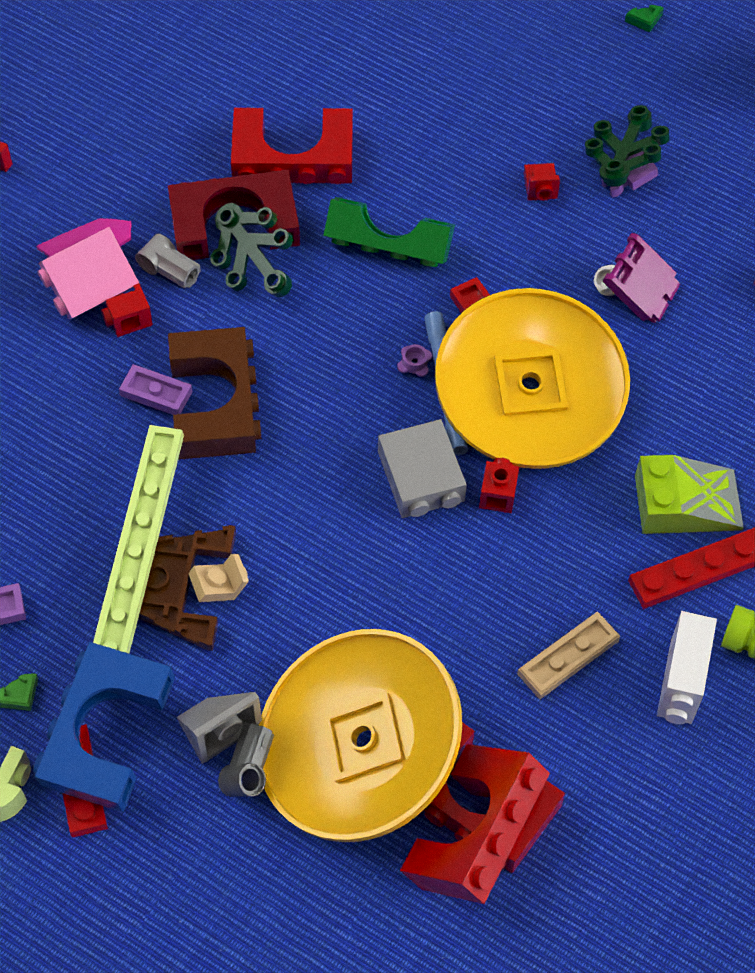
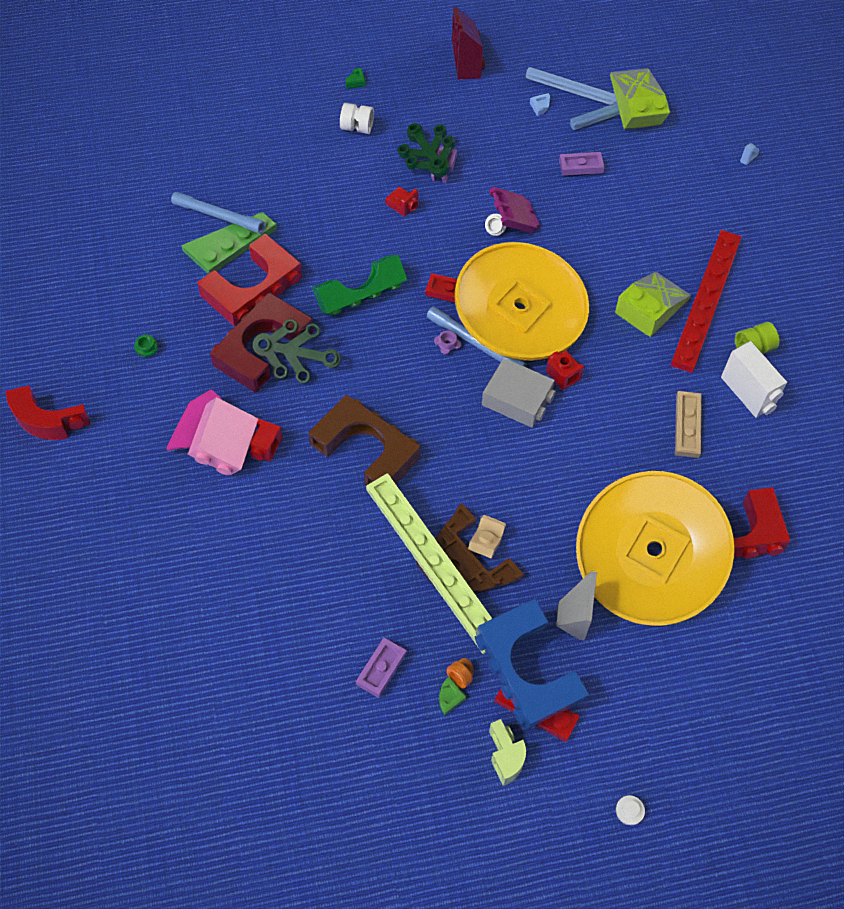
camera: 45 degrees left, 0 degrees up
(44, 680) = (461, 674): none -> orange tile
(48, 953) = (630, 810): none -> white plate
(129, 135) = (146, 345): none -> green plate
(155, 390) = (331, 470): medium lavender plate -> none
(162, 257) = (248, 396): light grey piece -> none
(247, 763) = (618, 621): dark grey piece -> none
(307, 93) = (224, 245): none -> bright green wing
(348, 82) = (245, 221): none -> medium blue piece
(474, 863) = (783, 558): red arch -> none
(589, 58) = (356, 118): none -> white wheel

